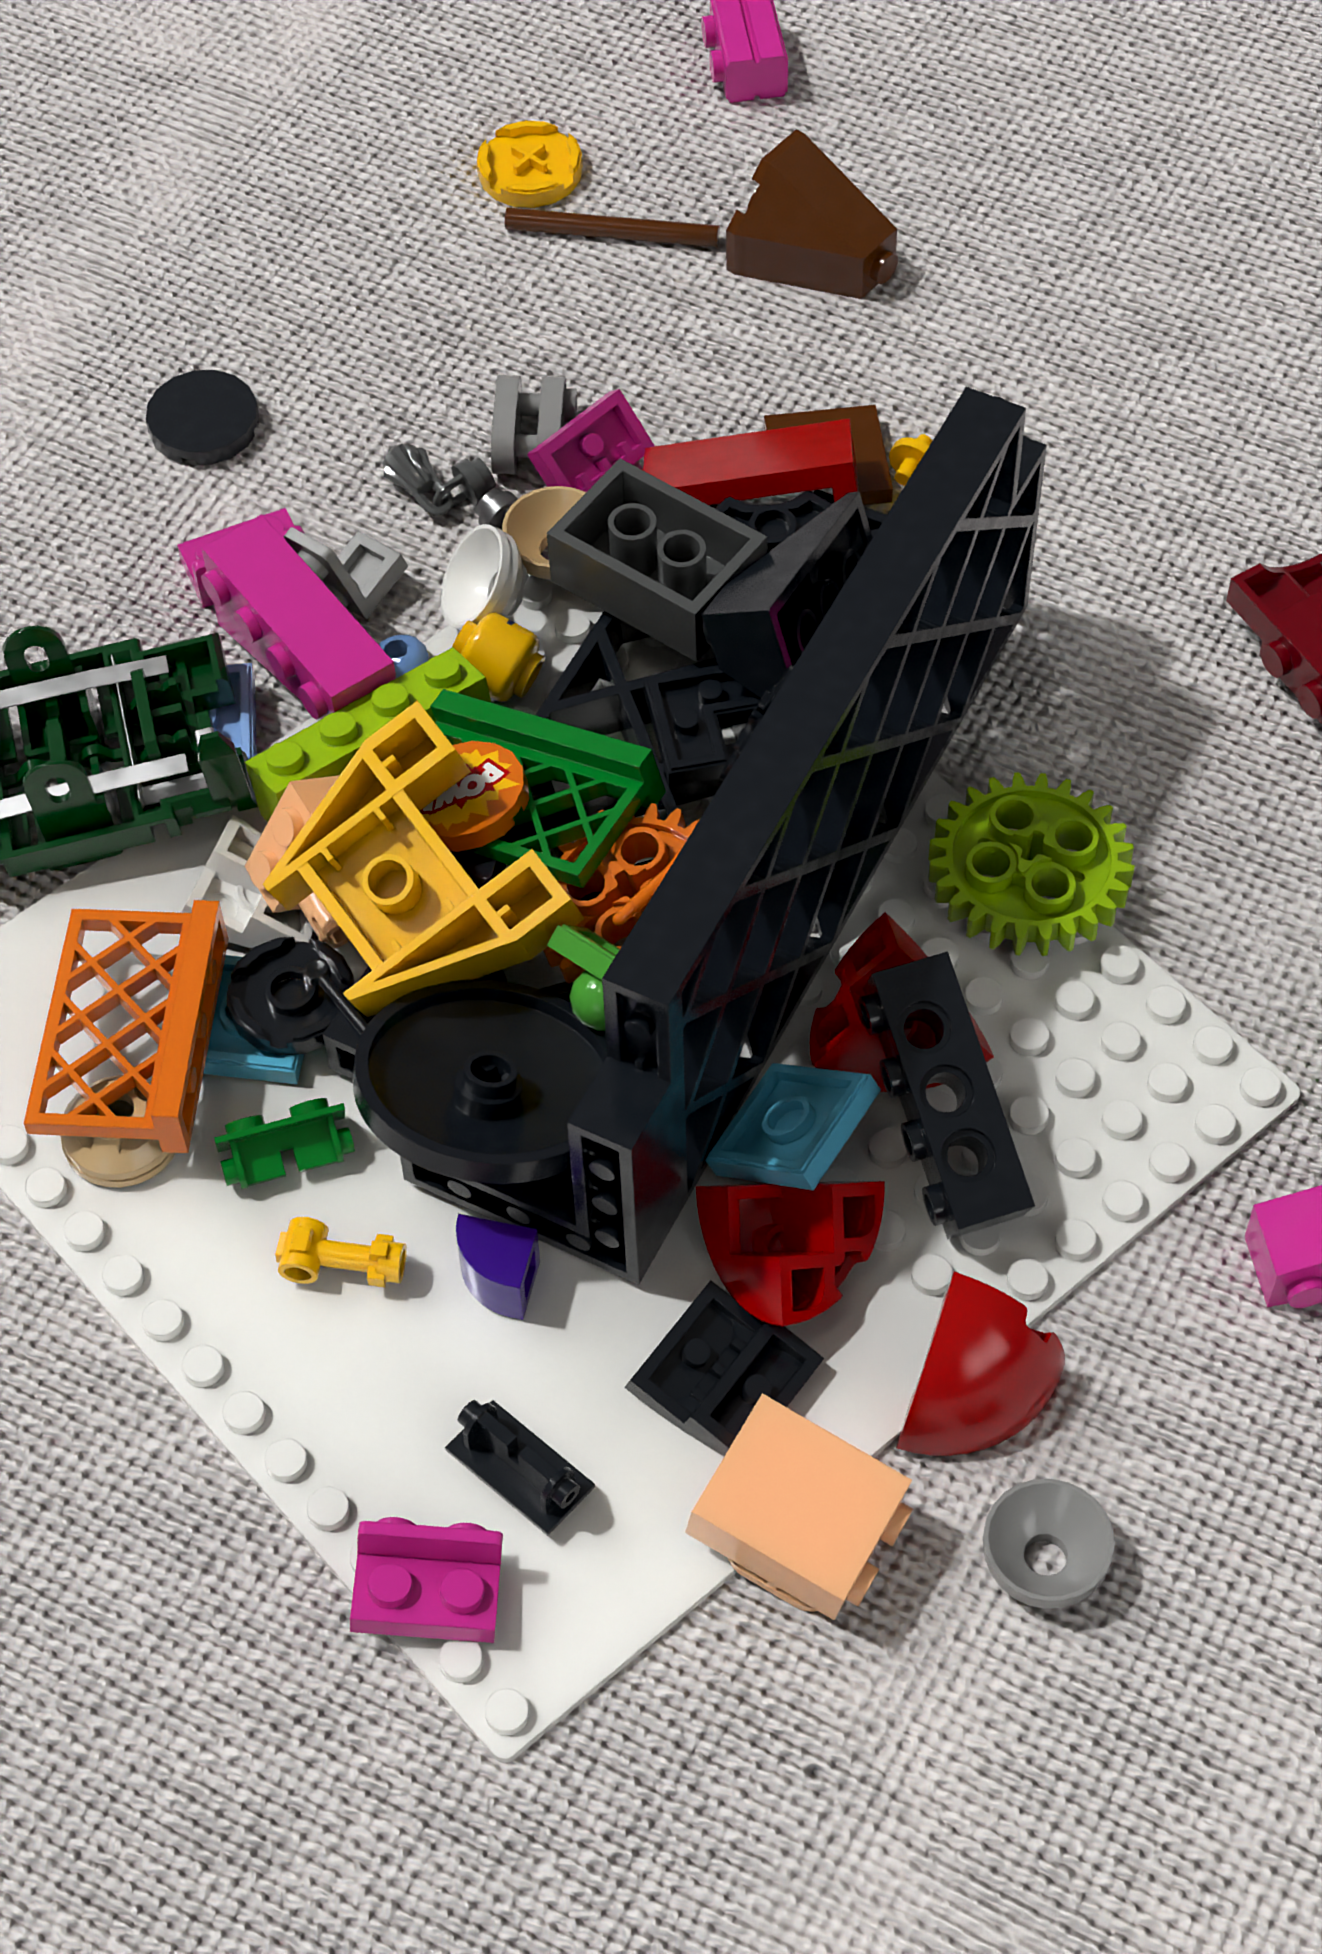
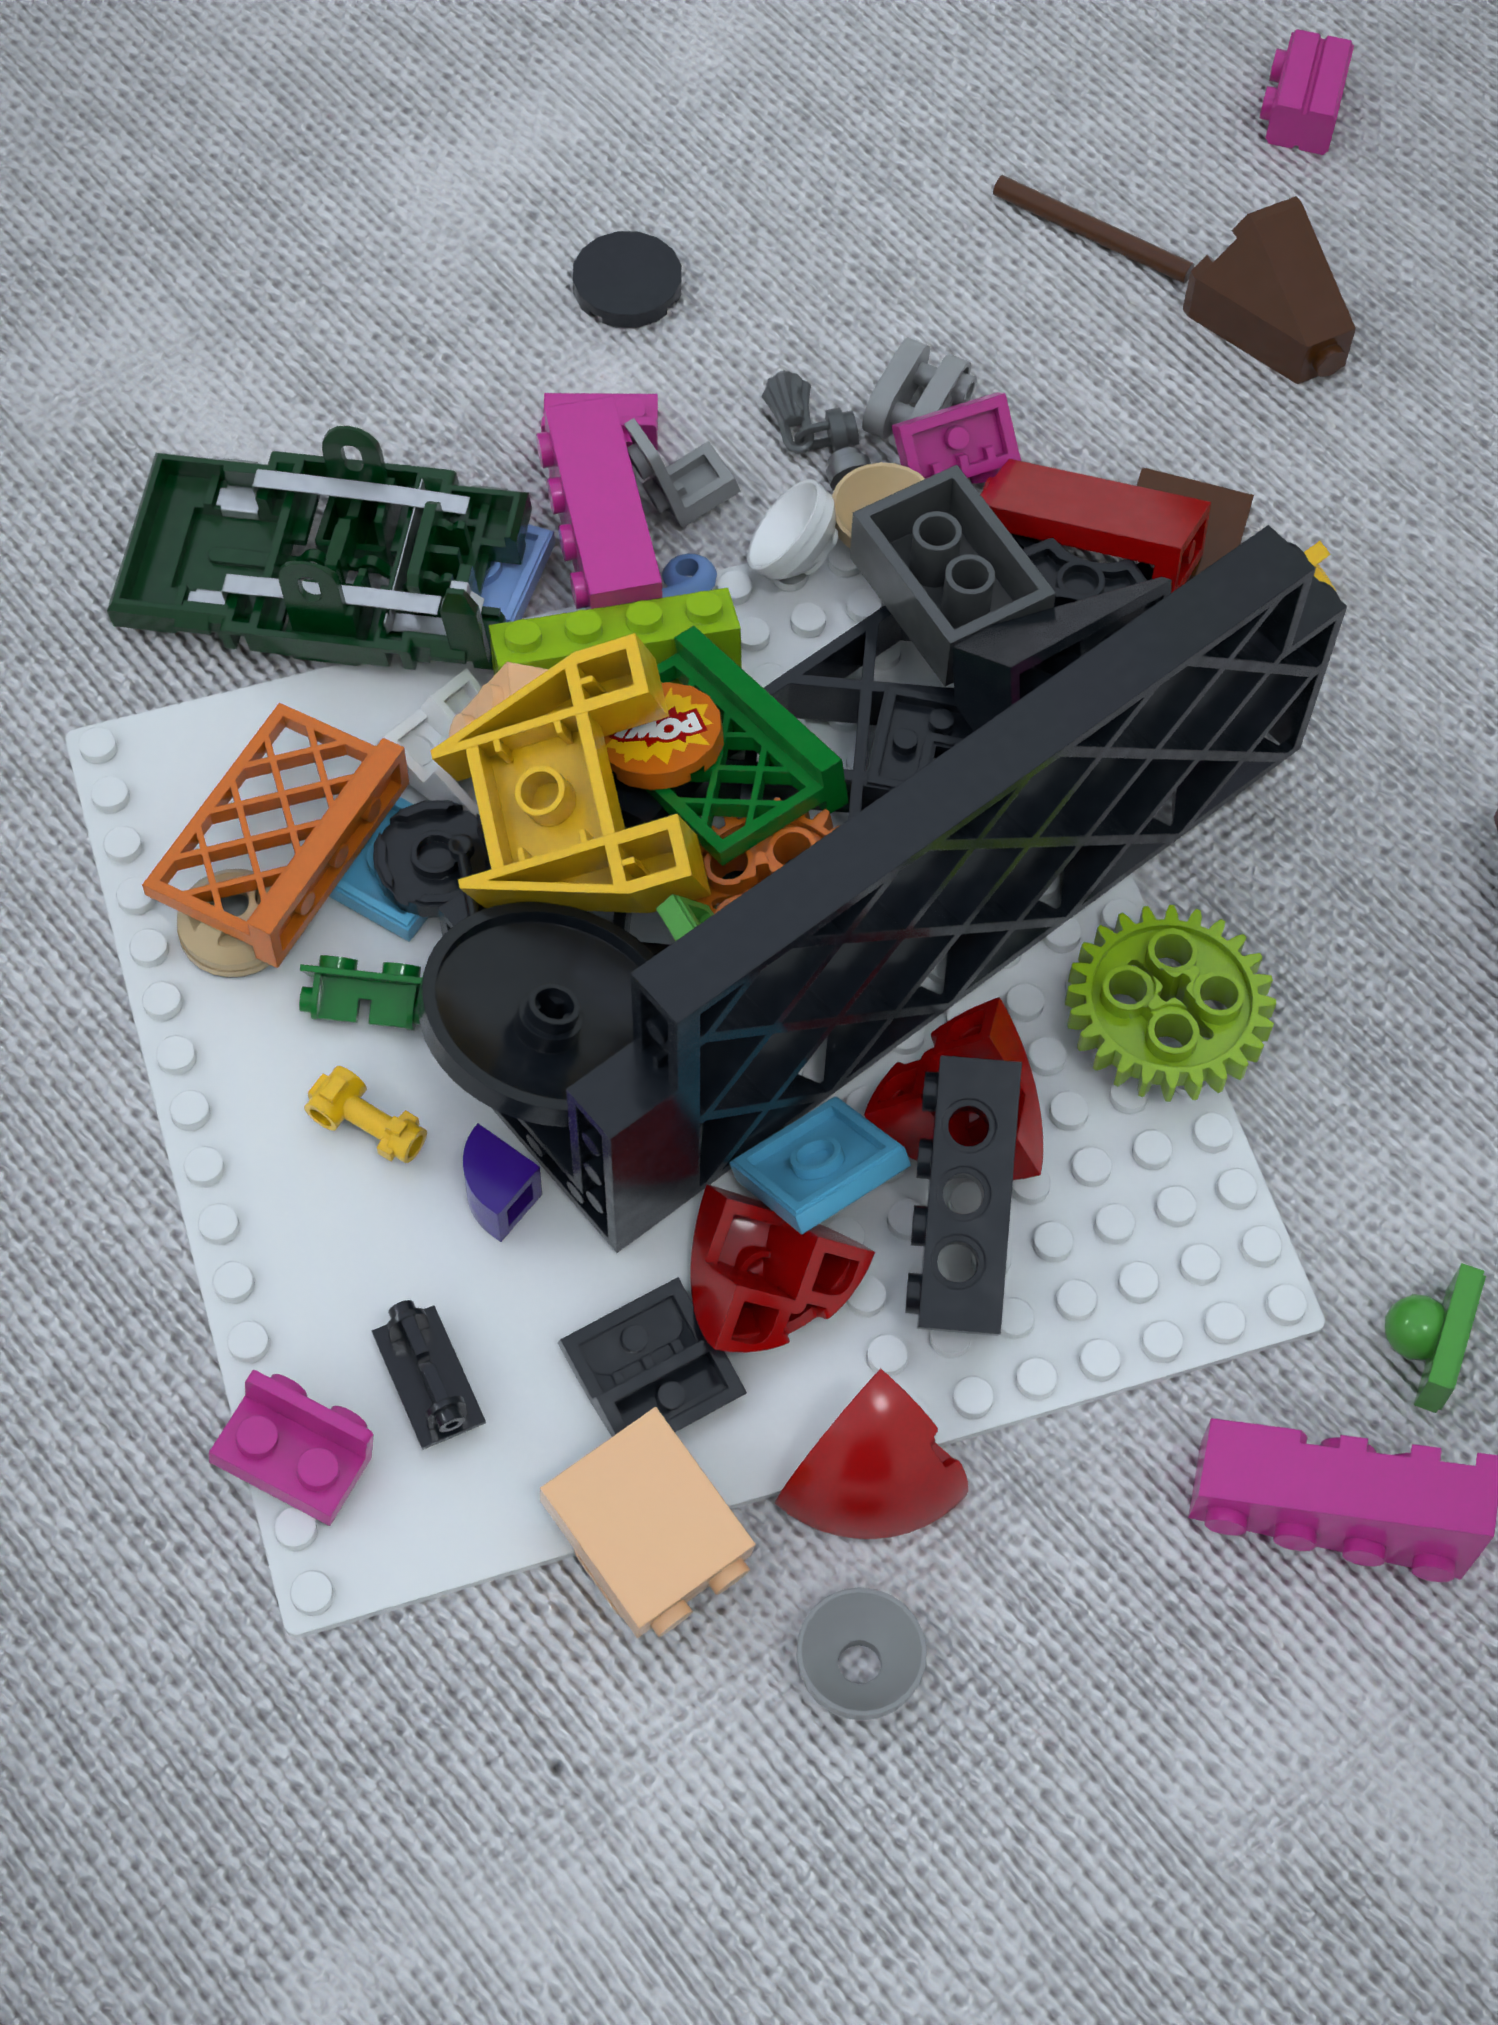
camera: 20 degrees right, 5 degrees up
(502, 653) = (774, 611): yellow head -> none
(529, 164) = (1046, 139): yellow tile -> none

